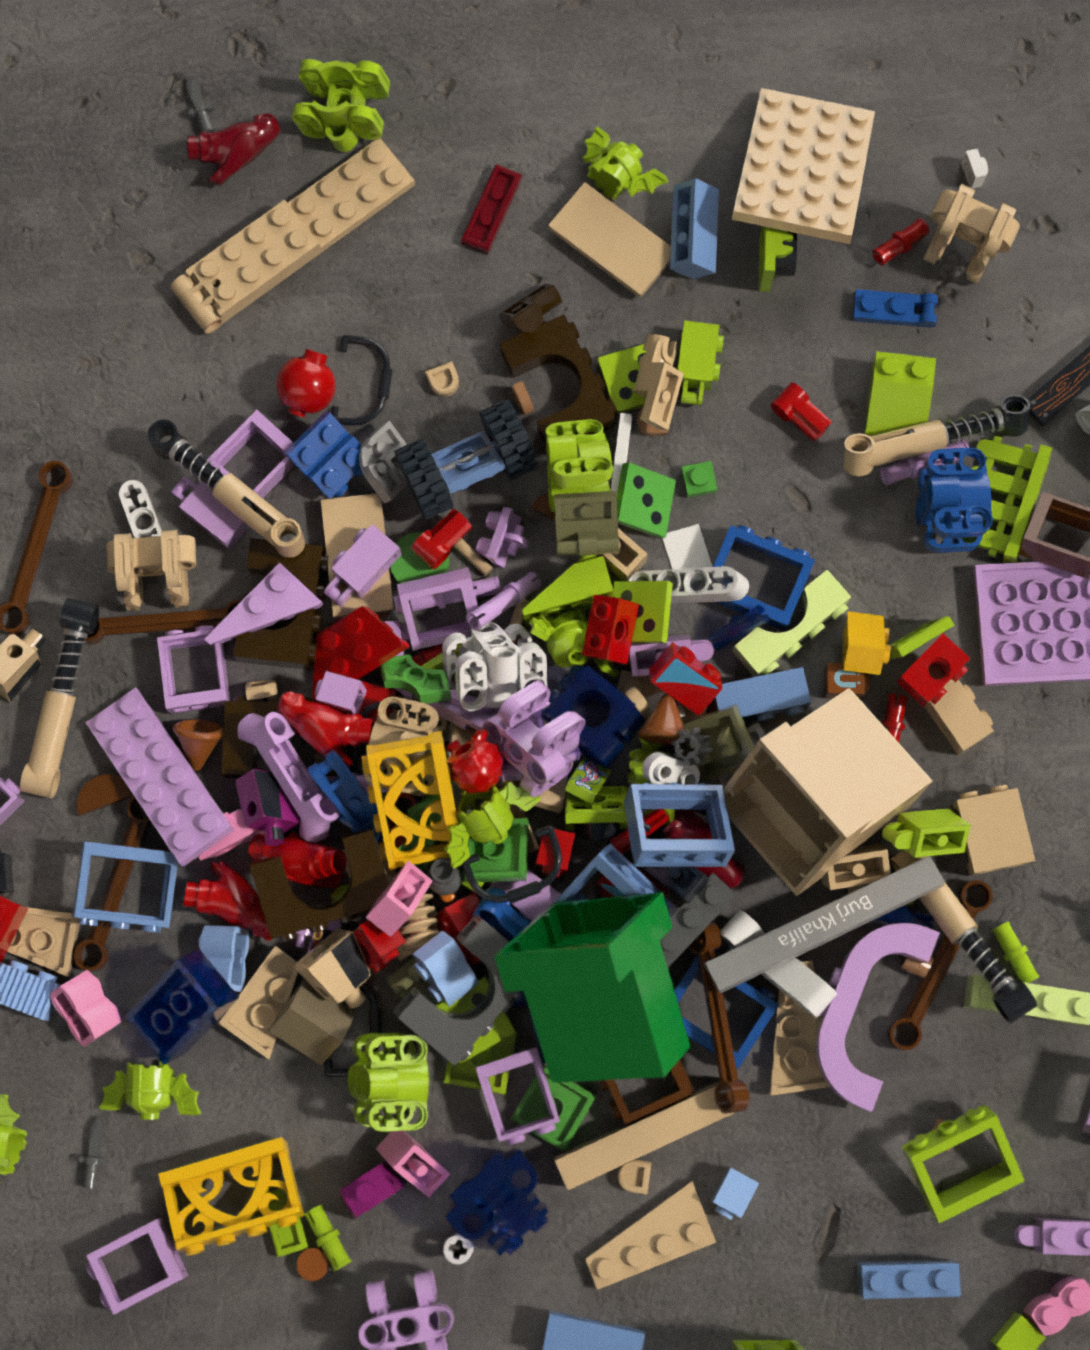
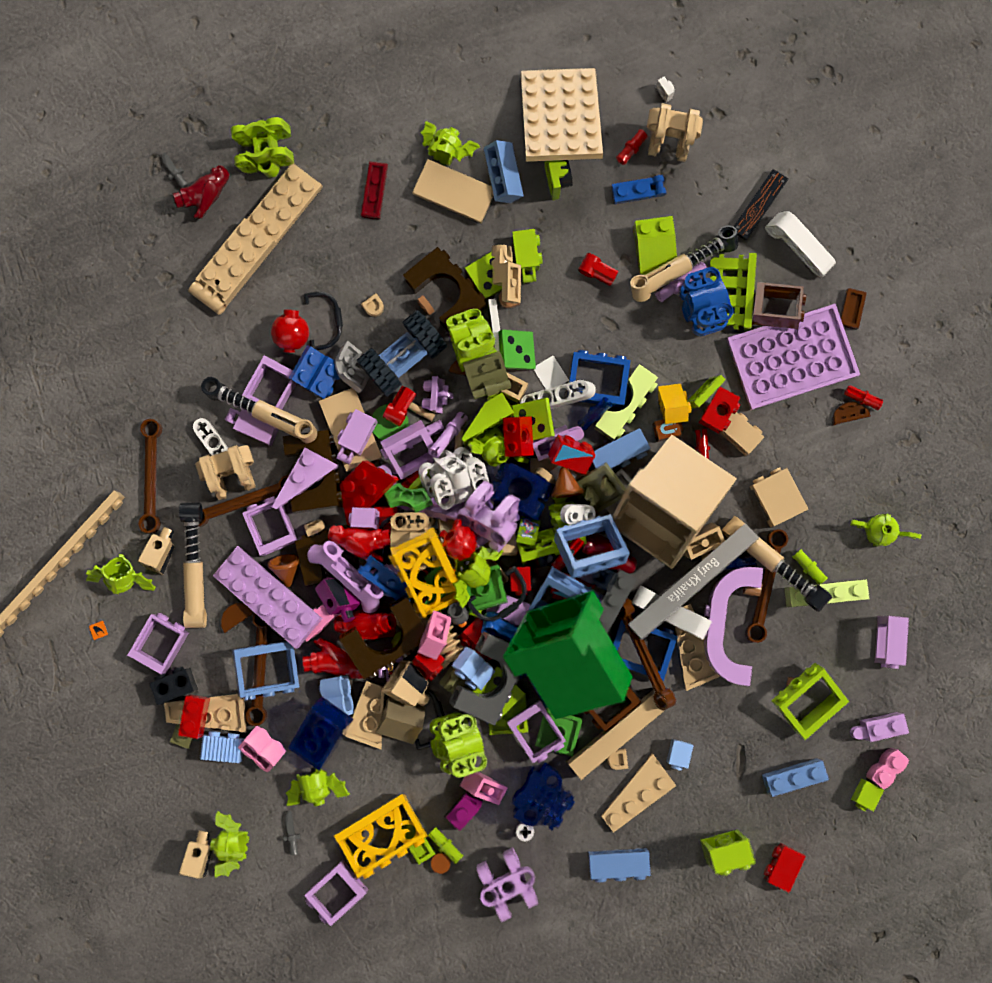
camera: 15 degrees left, 5 degrees up
(528, 312) = (414, 251): dark brown brick -> none
(690, 754) = (585, 500): dark grey gear -> none
(699, 479) = (546, 327): bright green plate -> none
(928, 832) = (741, 509): lime brick -> none

